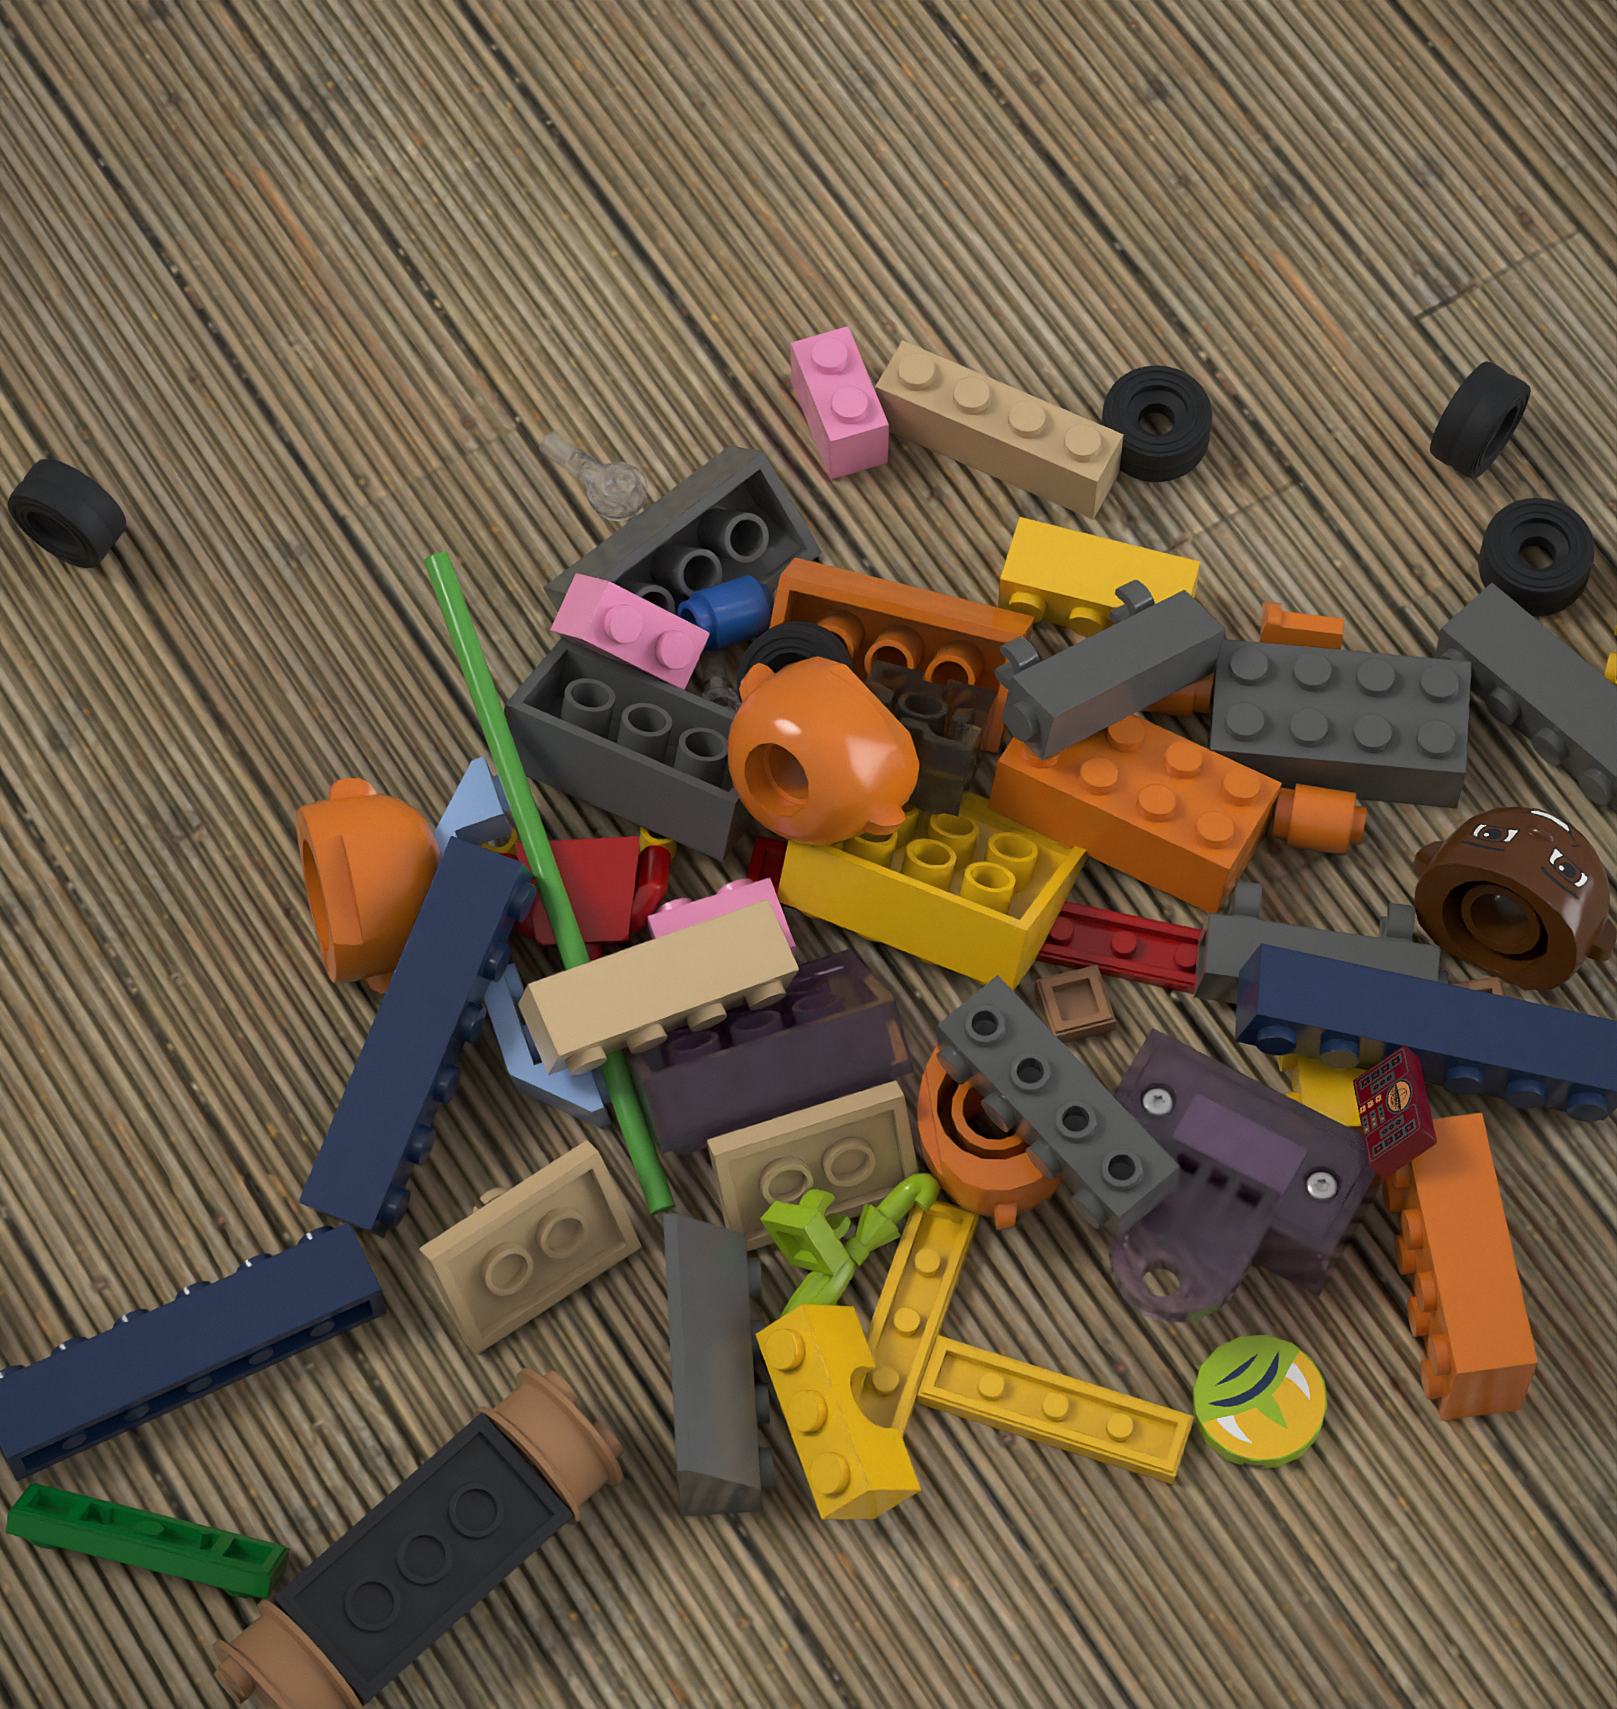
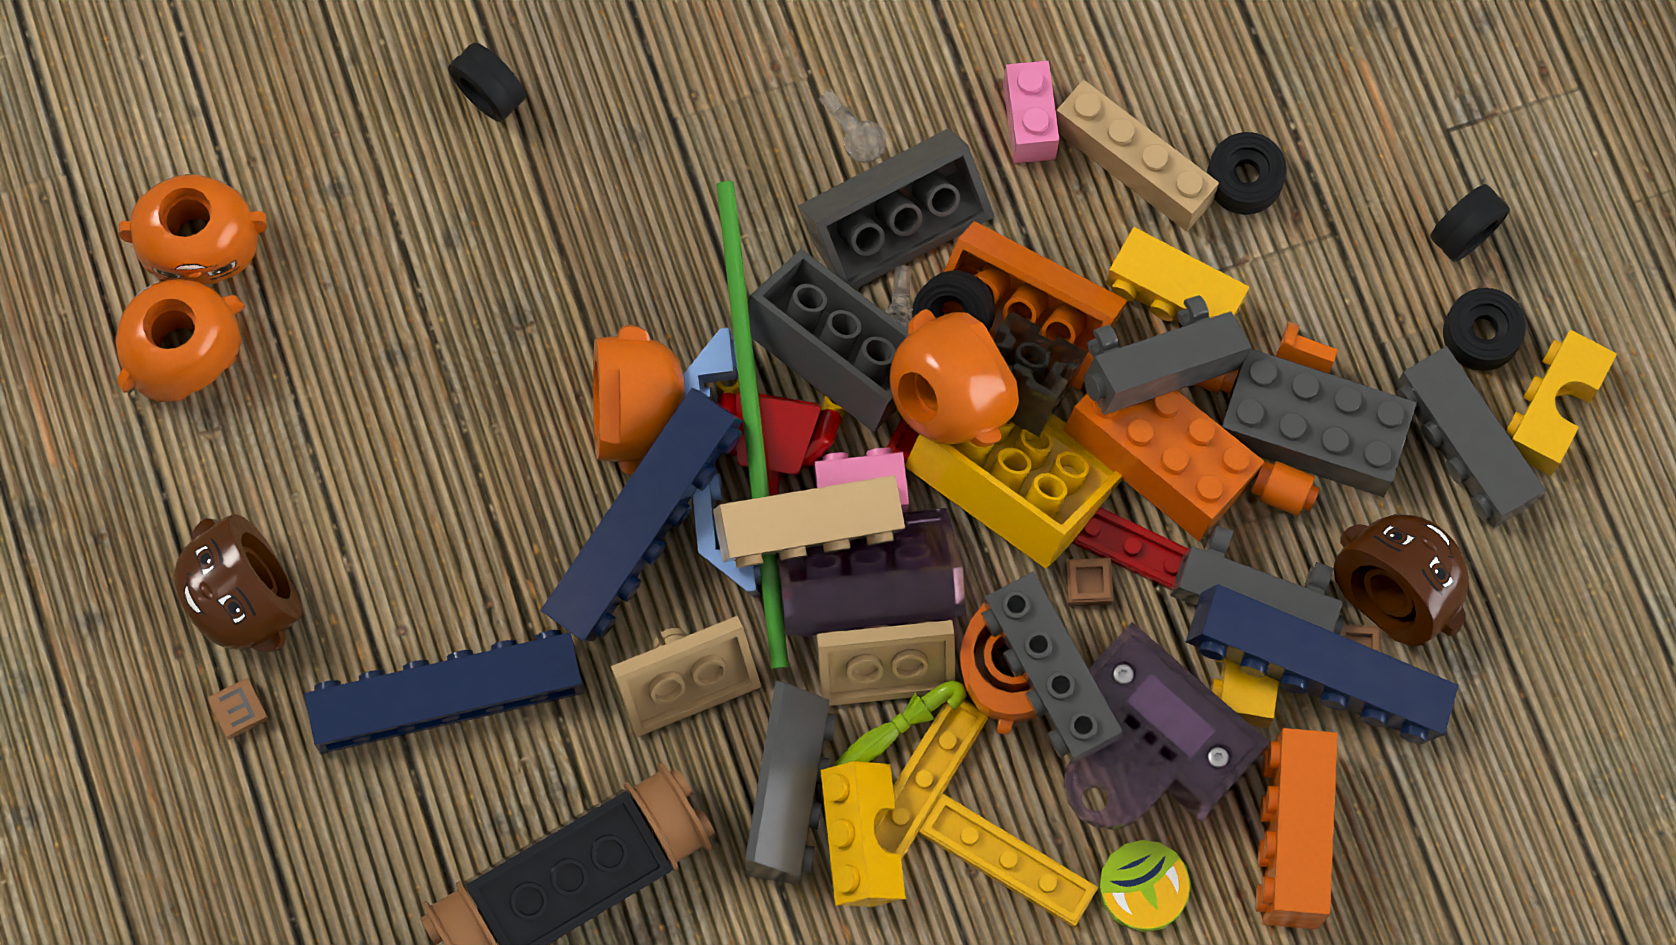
camera: 10 degrees right, 10 degrees up
(148, 1540) = (396, 817): green plate -> none
(629, 630) = (847, 256): bright pink brick -> none
(730, 611) = (917, 252): blue brick -> none
(806, 1235) = (872, 707): lime tile -> none
(1394, 1112) = (1278, 719): dark red tile -> none

